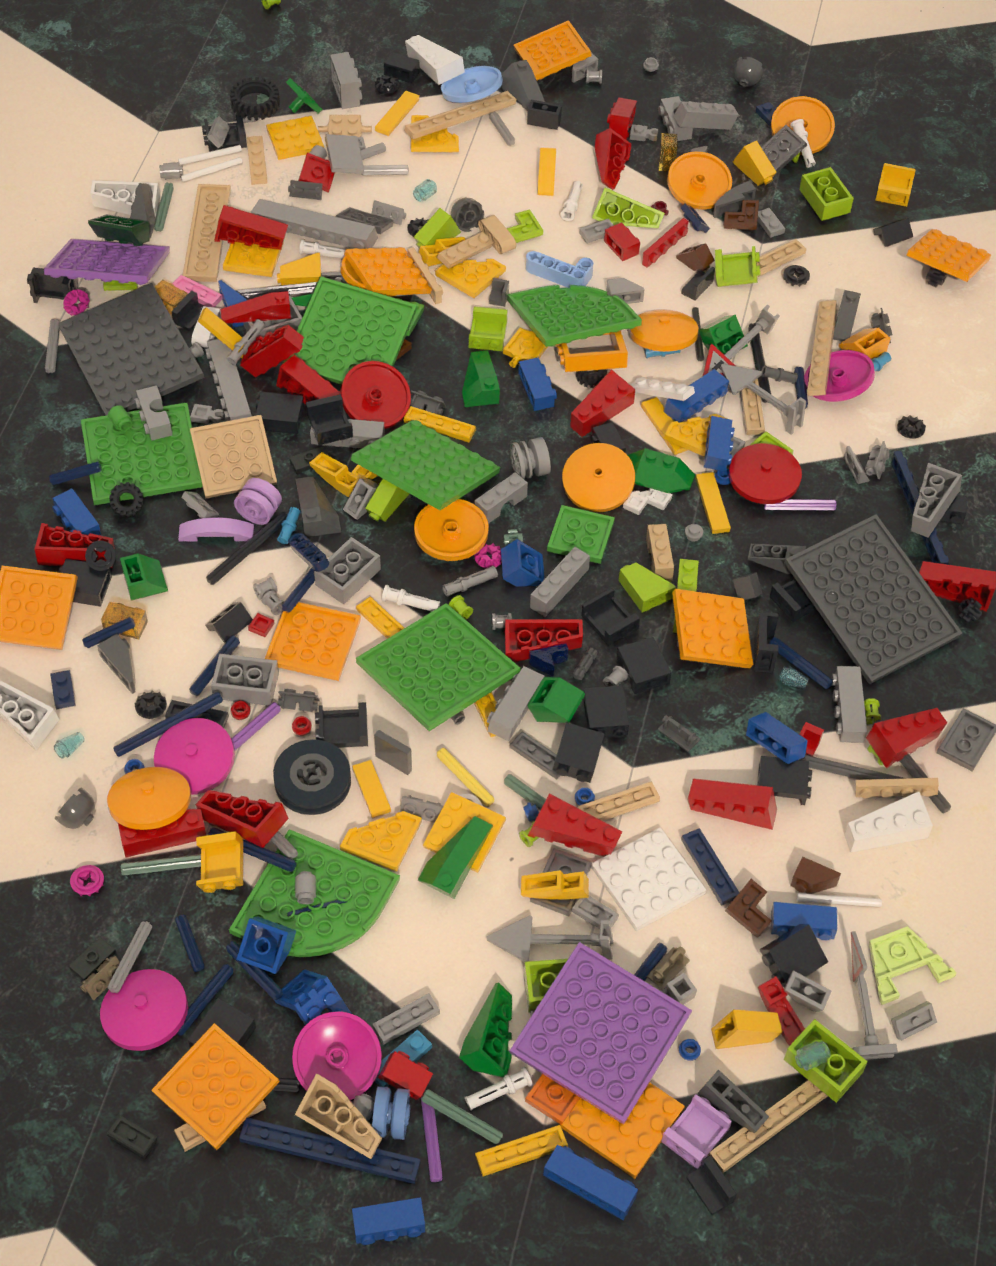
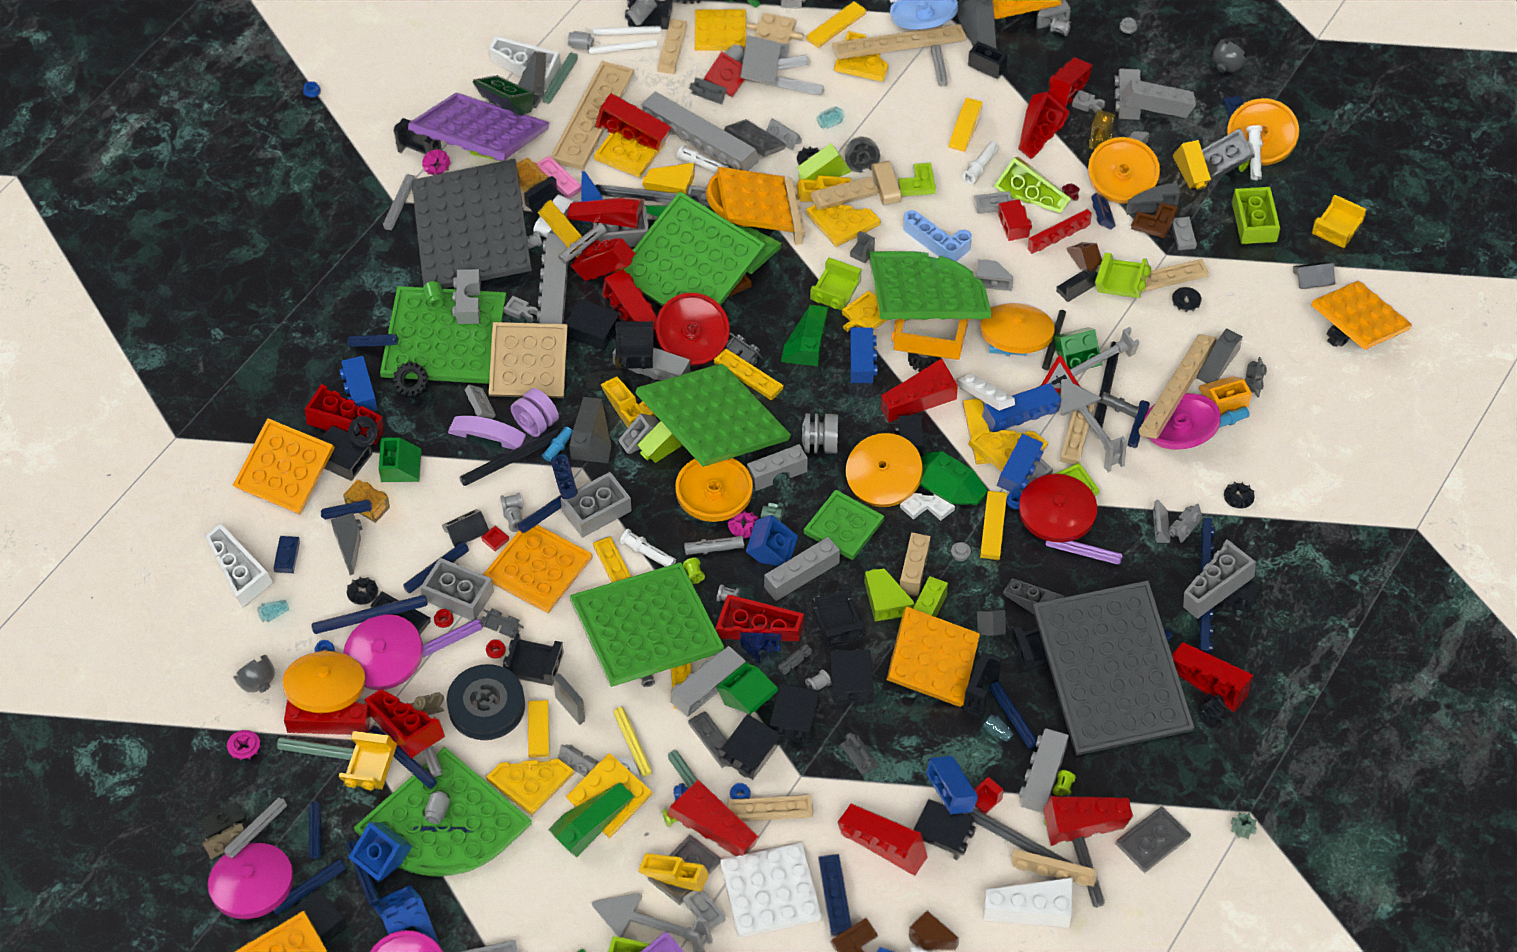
camera: 20 degrees right, 0 degrees up
(259, 791) = (429, 703): none -> dark tan hinge

